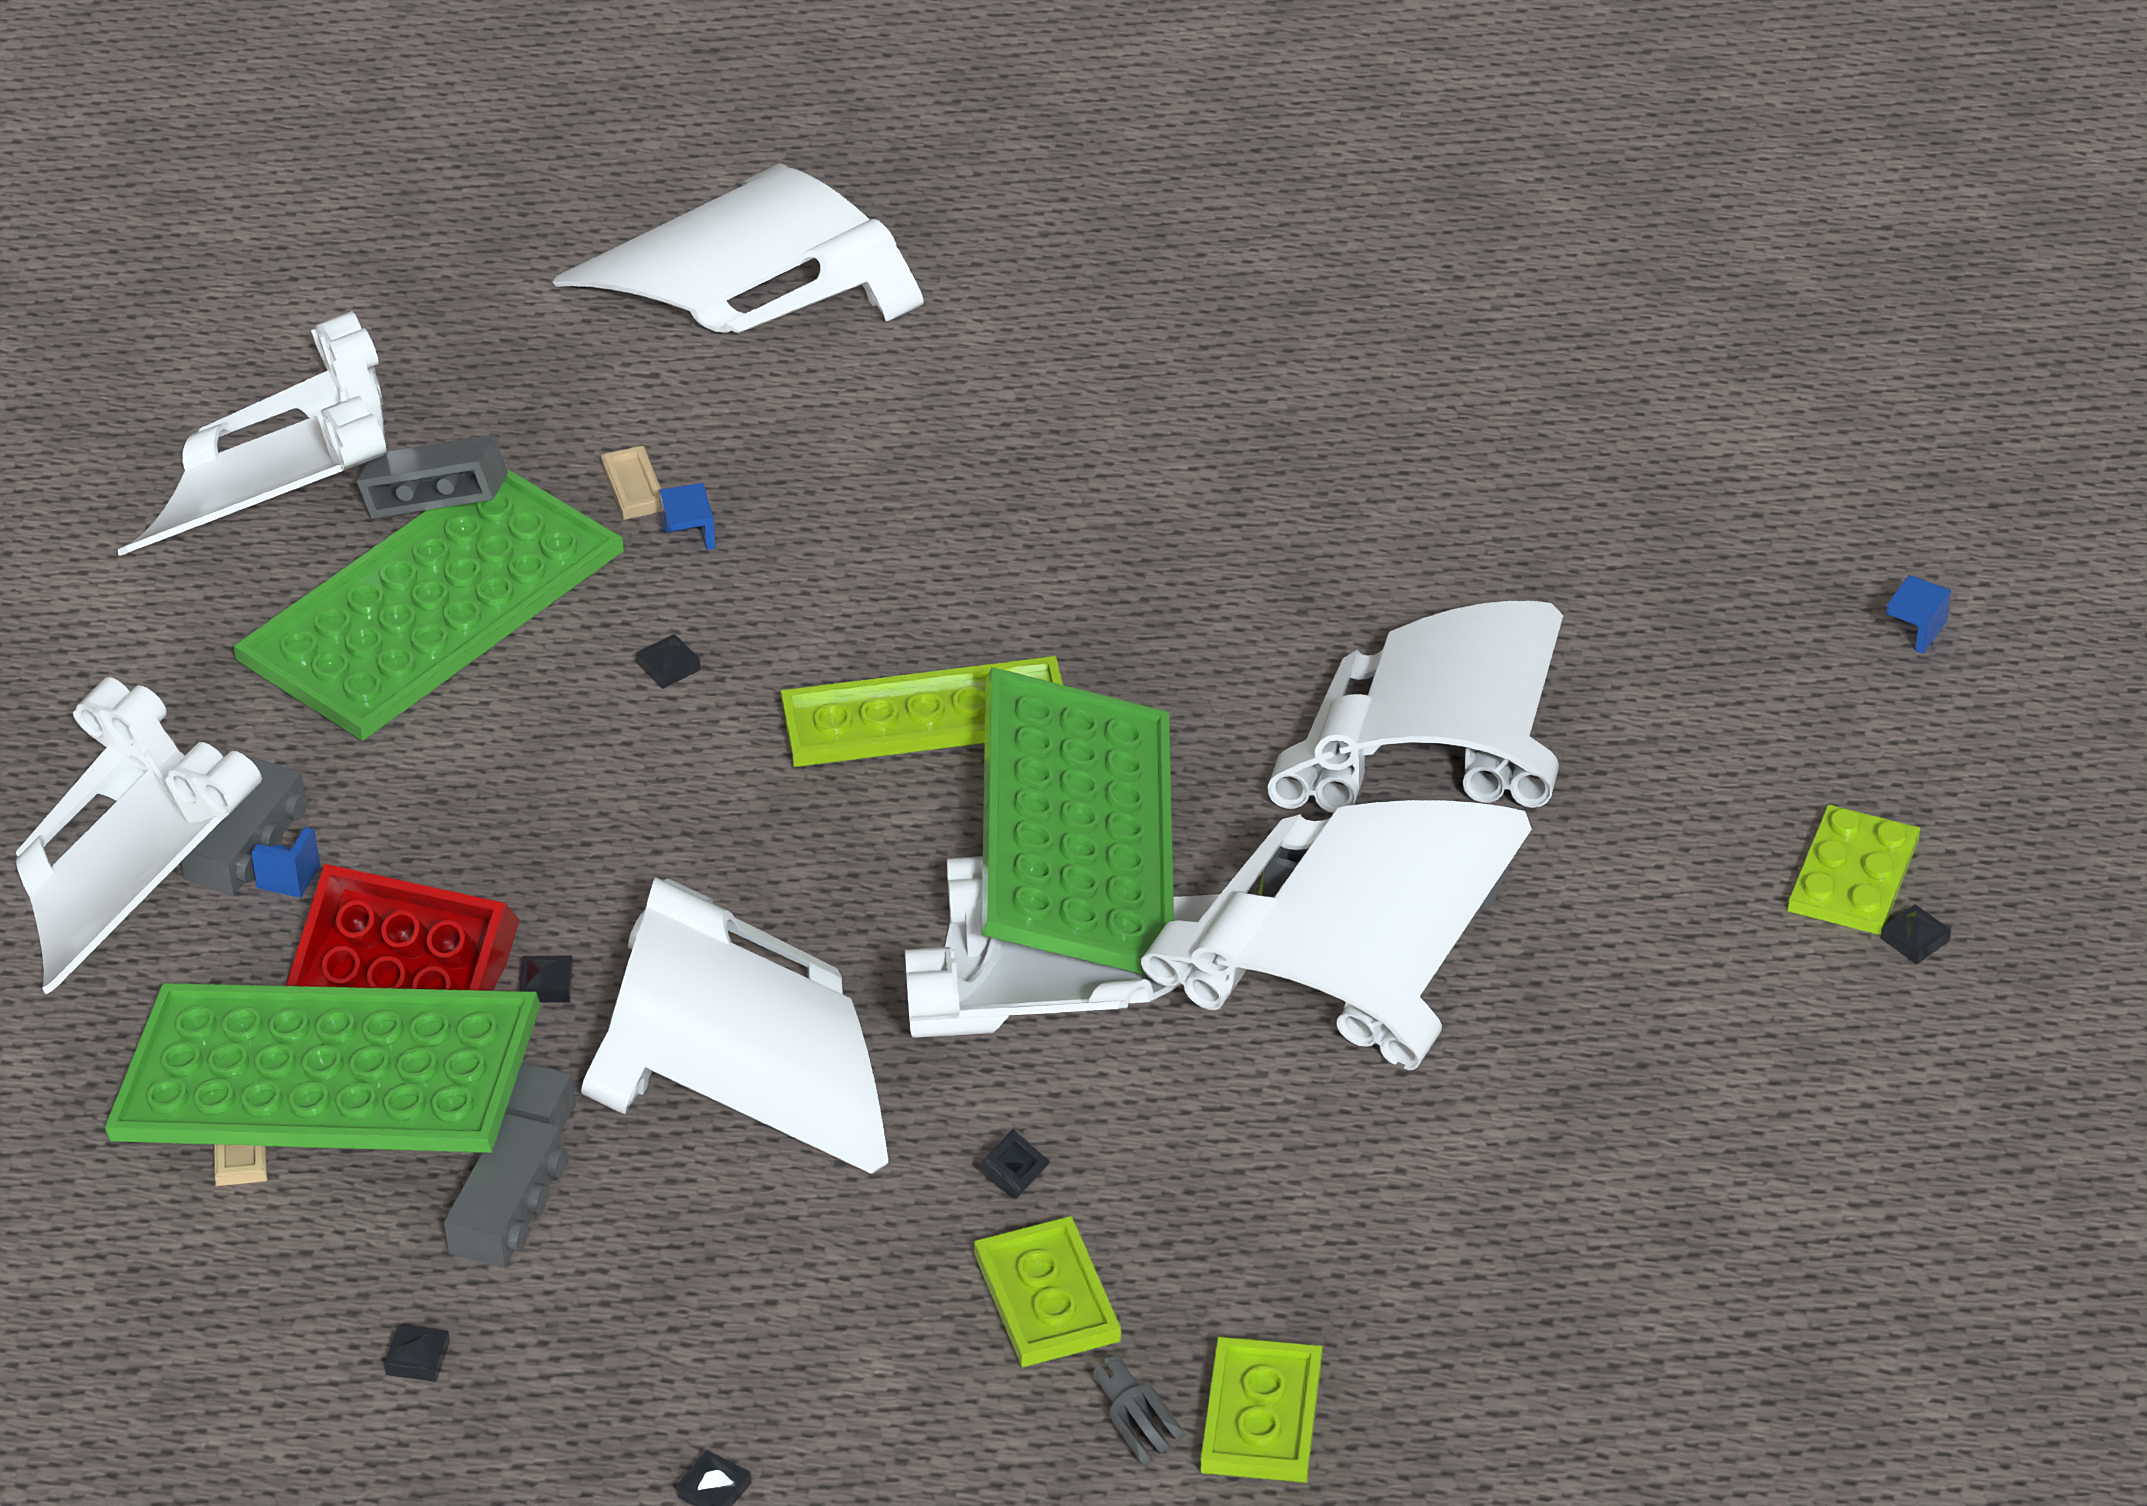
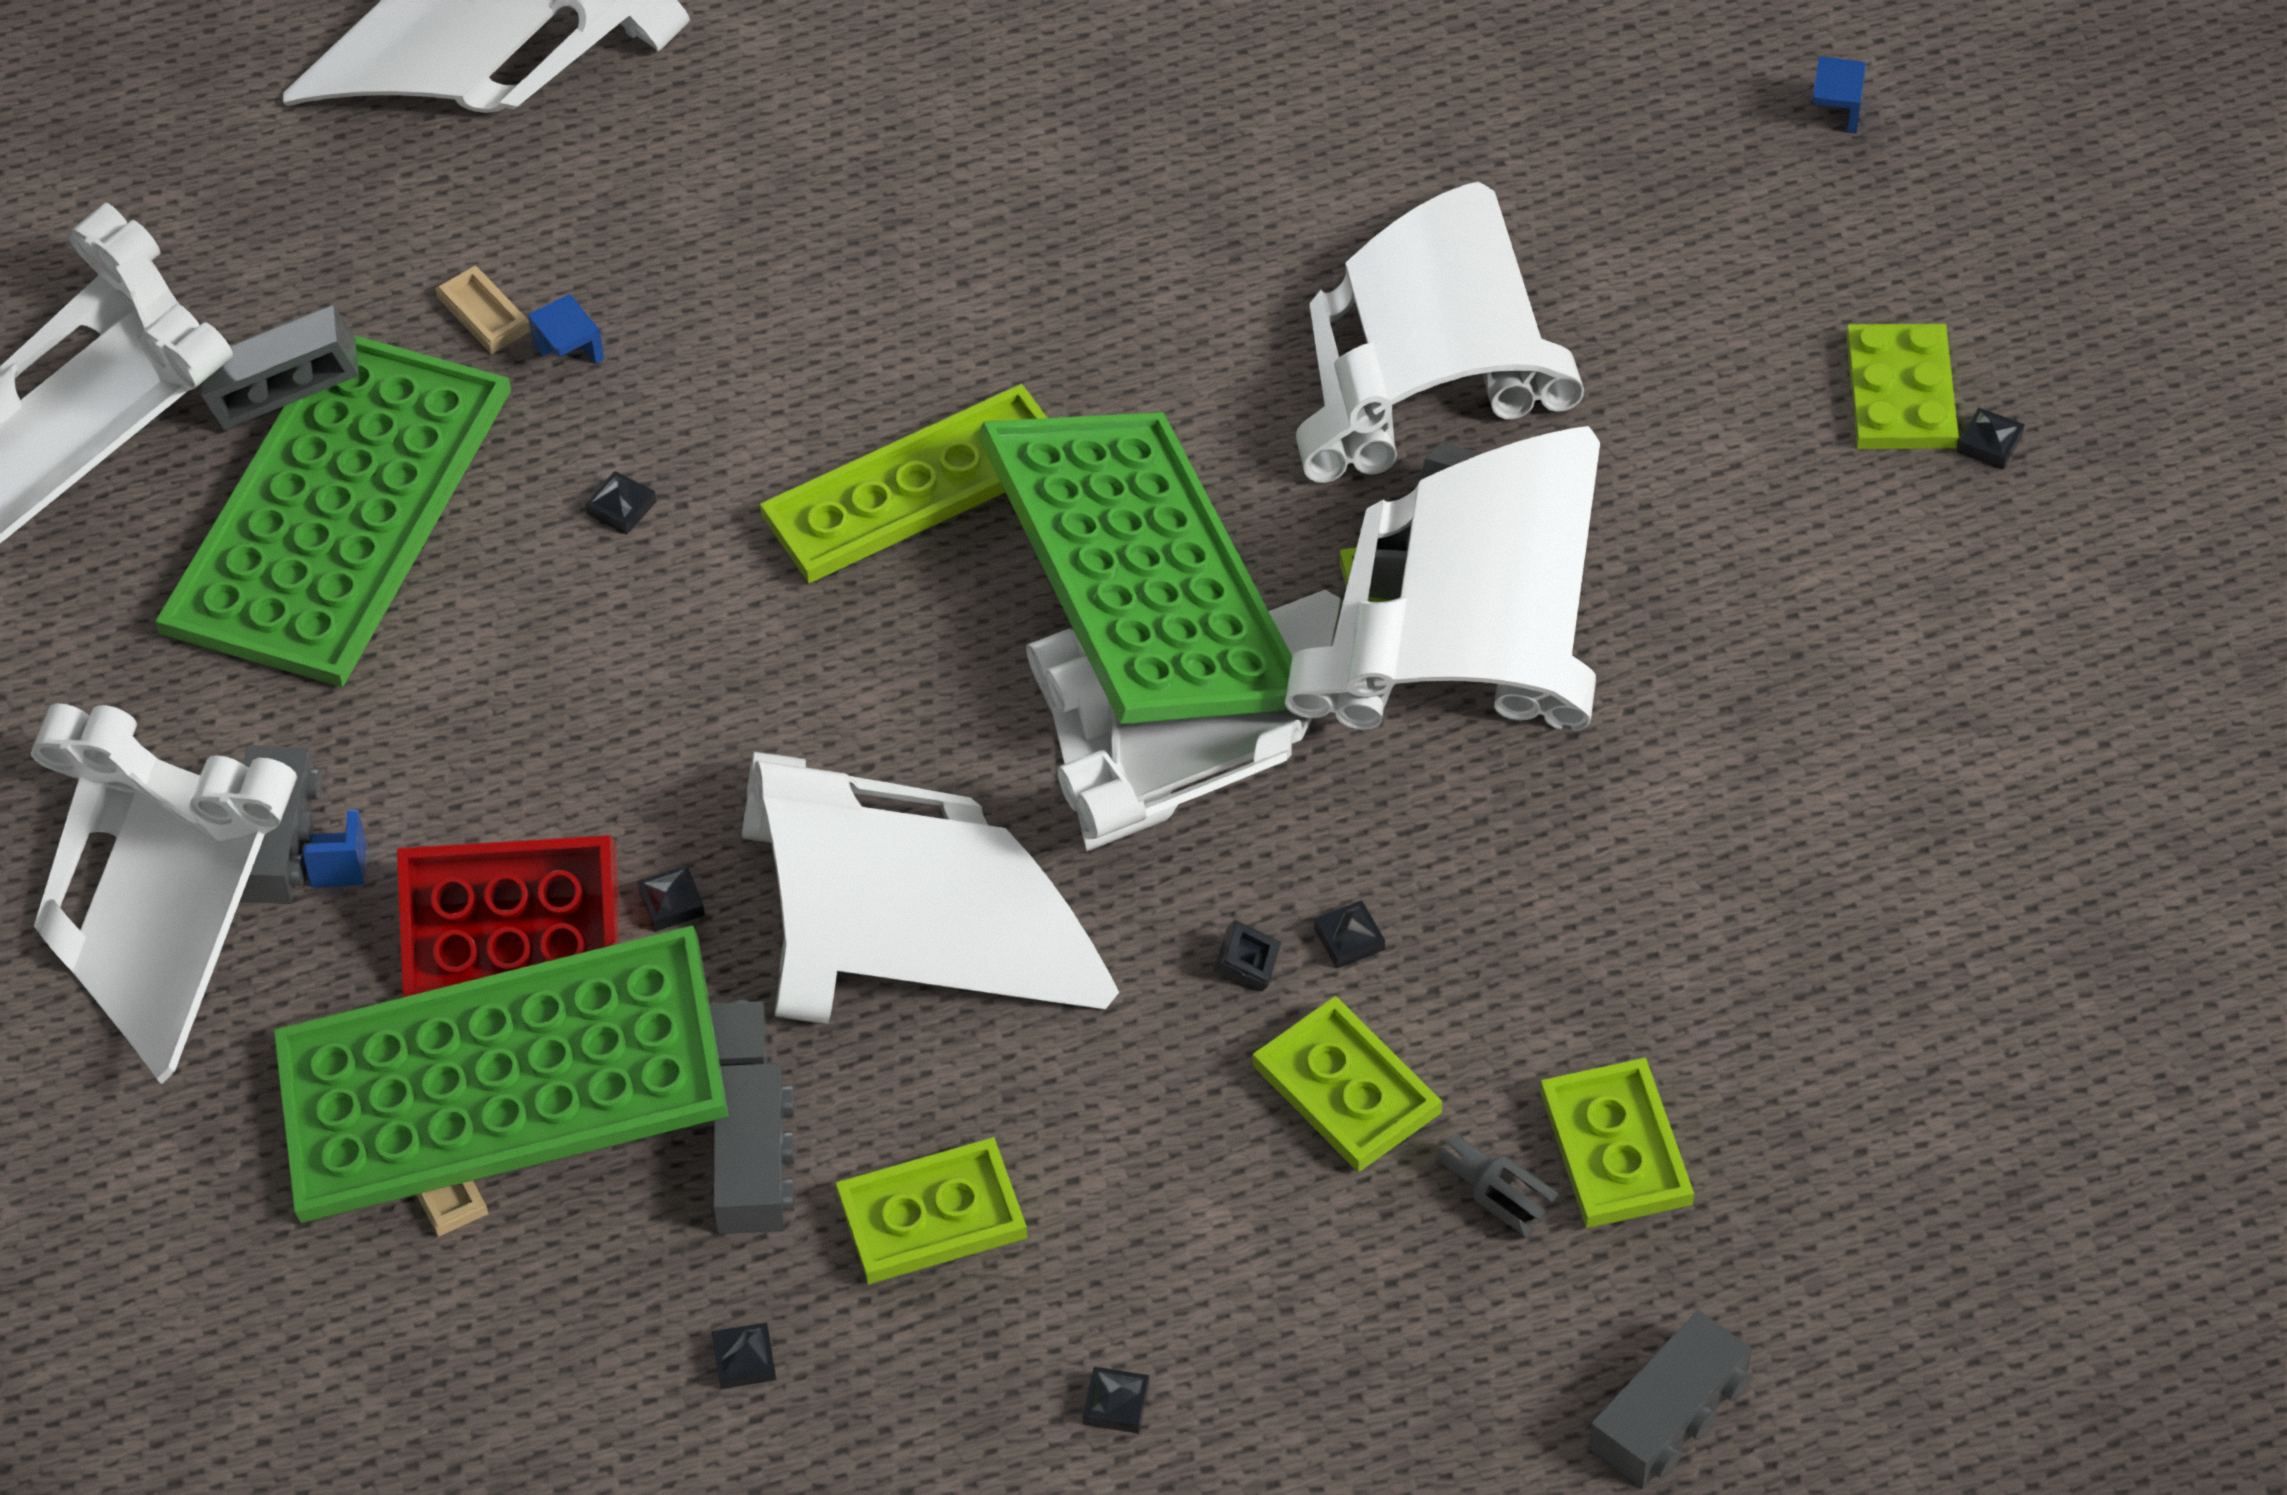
camera: 20 degrees left, 10 degrees up
(633, 1285) = (931, 1210): none -> lime plate
(1115, 1174) = (1349, 934): none -> black tile

